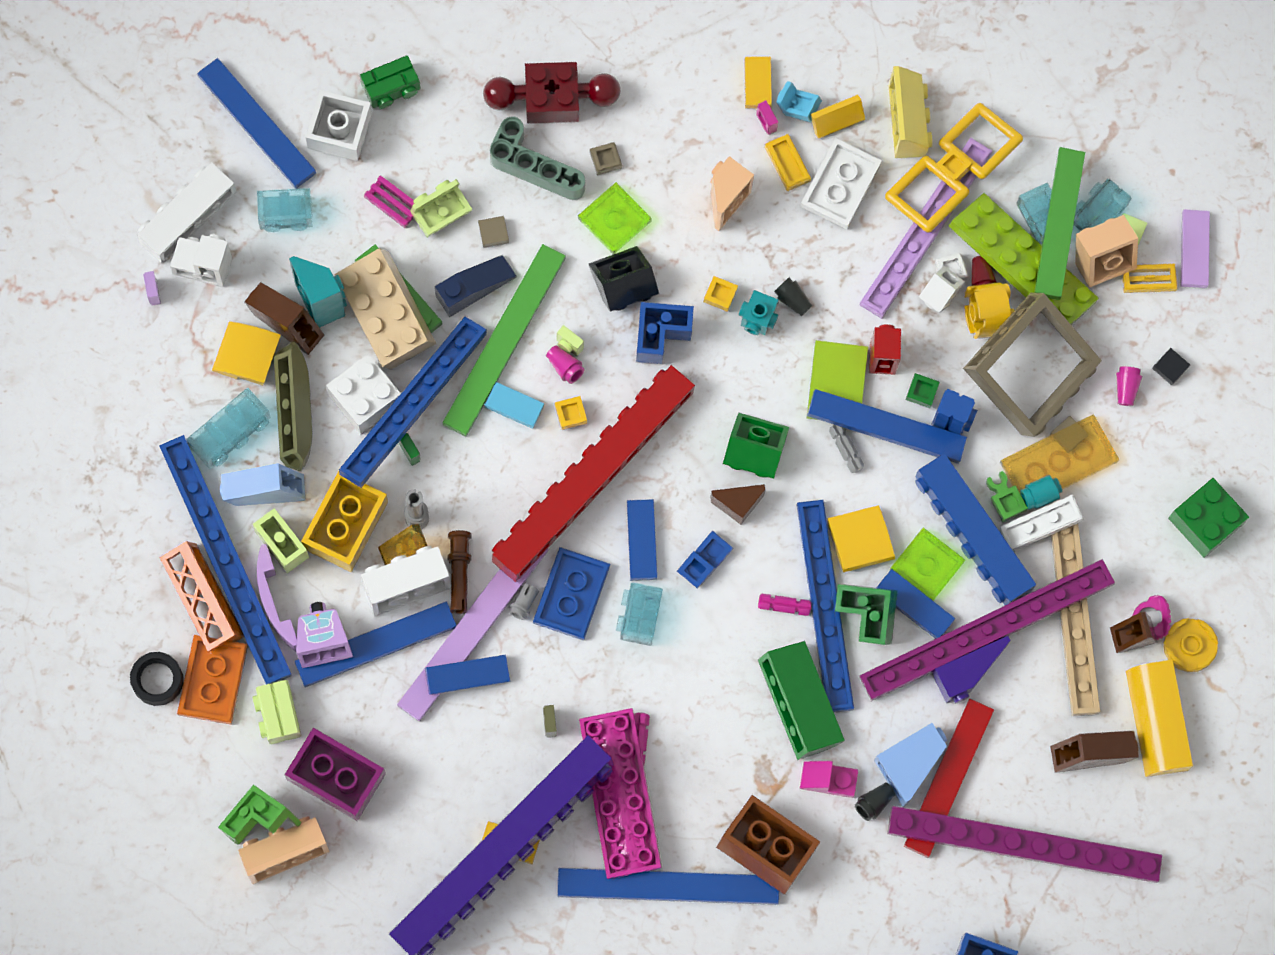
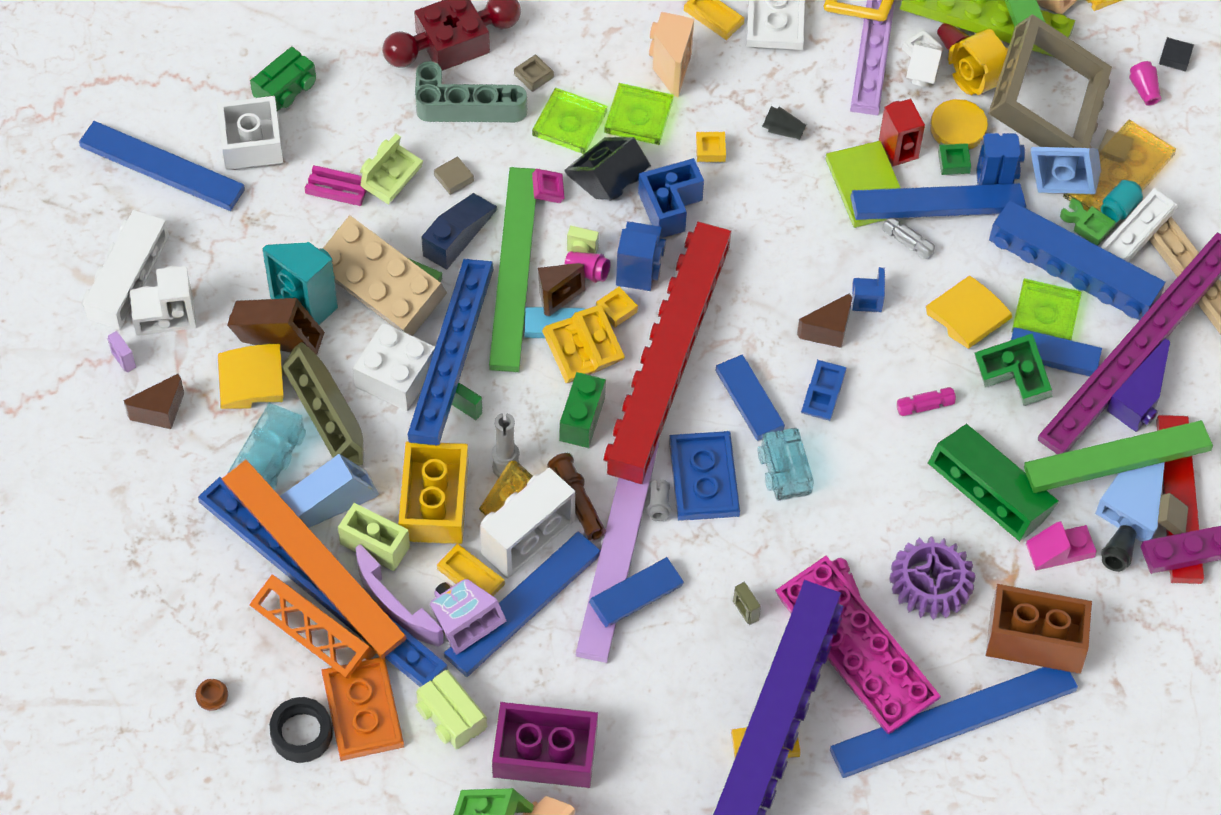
camera: 20 degrees left, 15 degrees down
(101, 619) = (211, 694): none -> dark orange plate
(162, 348) = (157, 404): none -> reddish brown slope
(224, 541) = (314, 559): none -> orange tile
(285, 209) = (229, 229): clear light blue brick -> none
(346, 601) = (461, 565): none -> yellow tile
(498, 496) = (582, 410): none -> green brick
(527, 436) = (583, 343): none -> yellow slope
(530, 375) = (560, 285): none -> reddish brown slope
(566, 275) = (548, 185): none -> dark pink tile
(609, 373) = (639, 256): none -> blue brick
(676, 235) = (639, 113): none -> clear neon green tile
(698, 756) = (947, 568): none -> medium lavender gear
(755, 445) = (820, 268): green slope -> none
(759, 313) = (759, 147): teal brick -> none
(786, 485) = (869, 293): none -> blue panel
(823, 602) = (957, 374): blue tile -> none
(909, 725) = (1118, 456): none -> bright green tile
(929, 793) = (1172, 514): none -> dark tan tile
(944, 357) = (958, 123): none -> yellow tile
(1008, 443) = (1066, 169): none -> light blue slope

